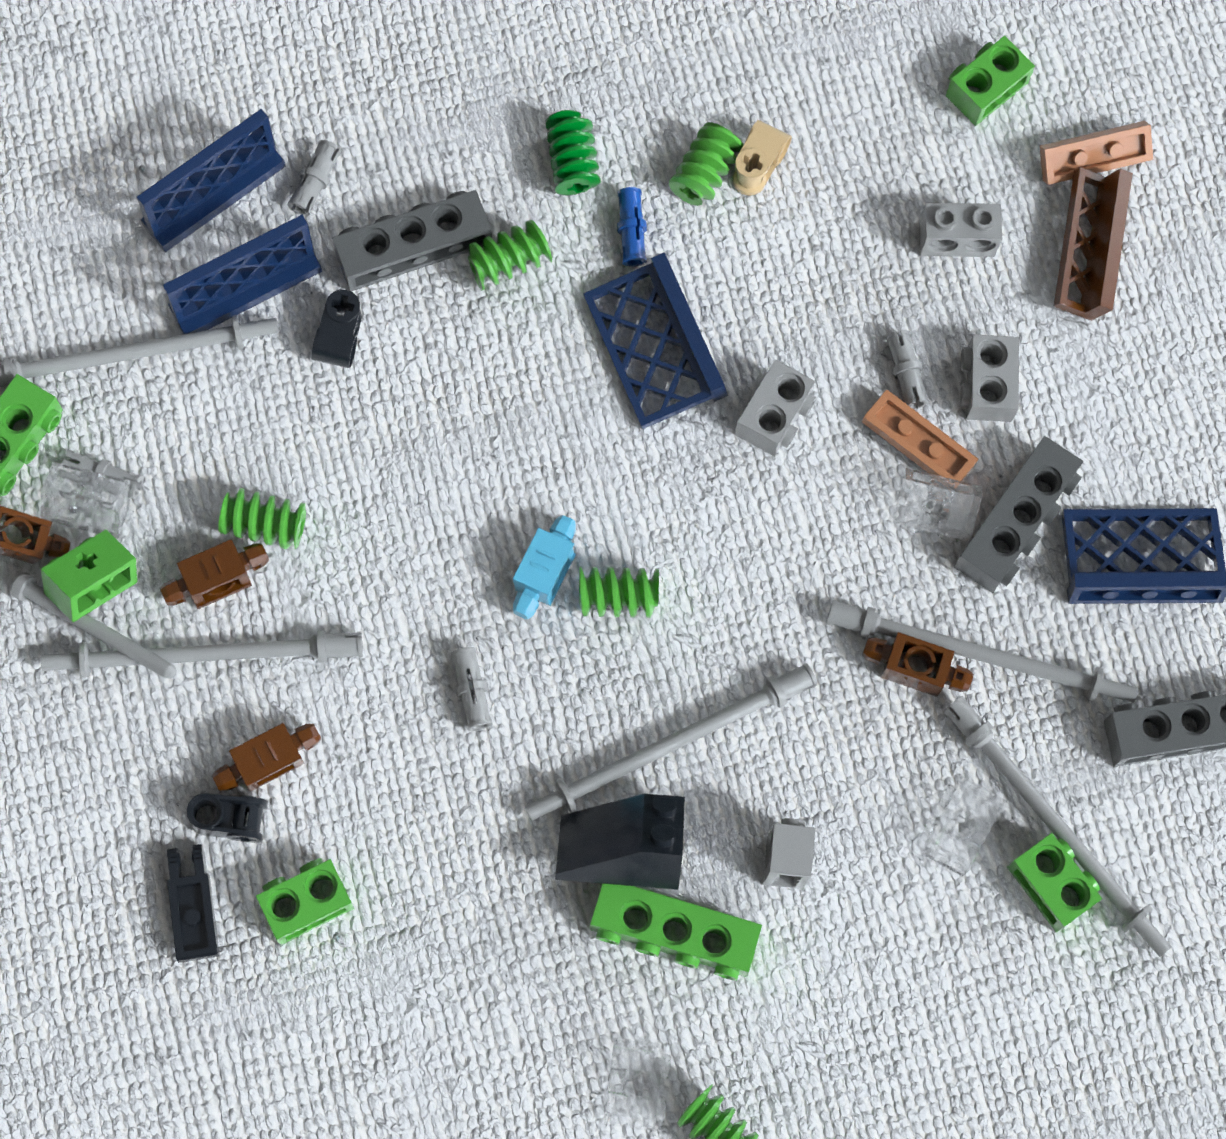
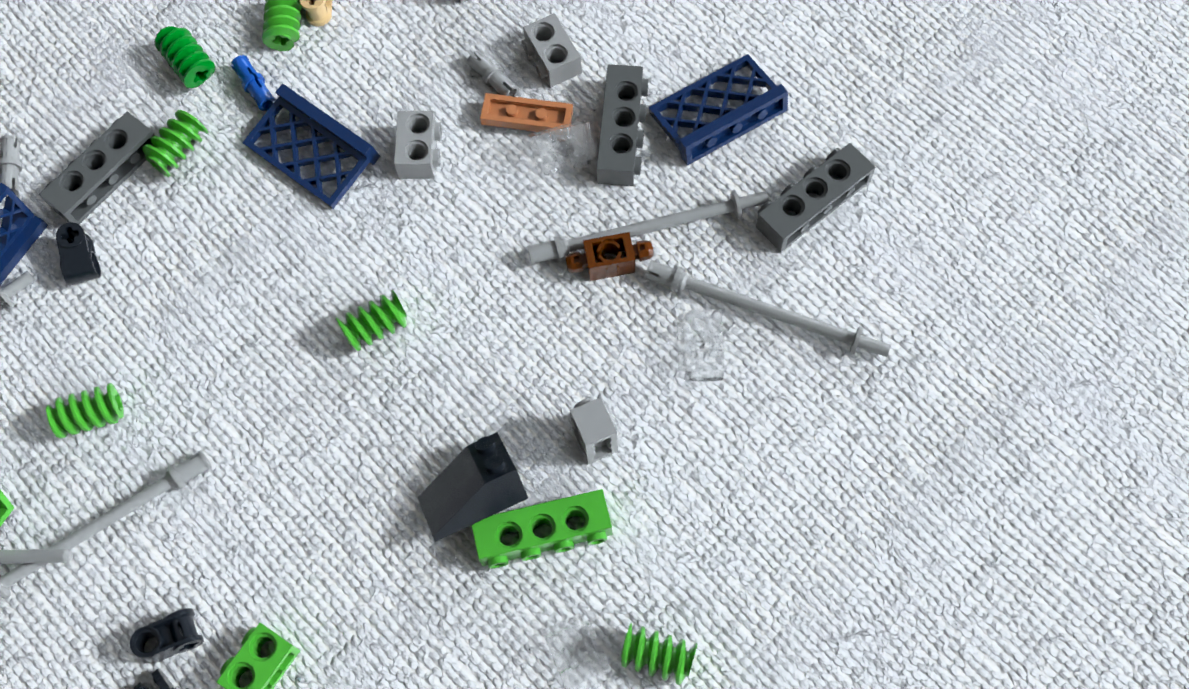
camera: 20 degrees left, 5 degrees down
(214, 574) = (69, 469): reddish brown piece -> none
(266, 757) = (174, 577): reddish brown piece -> none
(466, 663) = (290, 431): light grey pin -> none
(544, 567) = (311, 333): medium azure piece -> none
(774, 692) = (521, 328): light grey bar -> none
(1046, 888) = (784, 354): bright green brick -> none

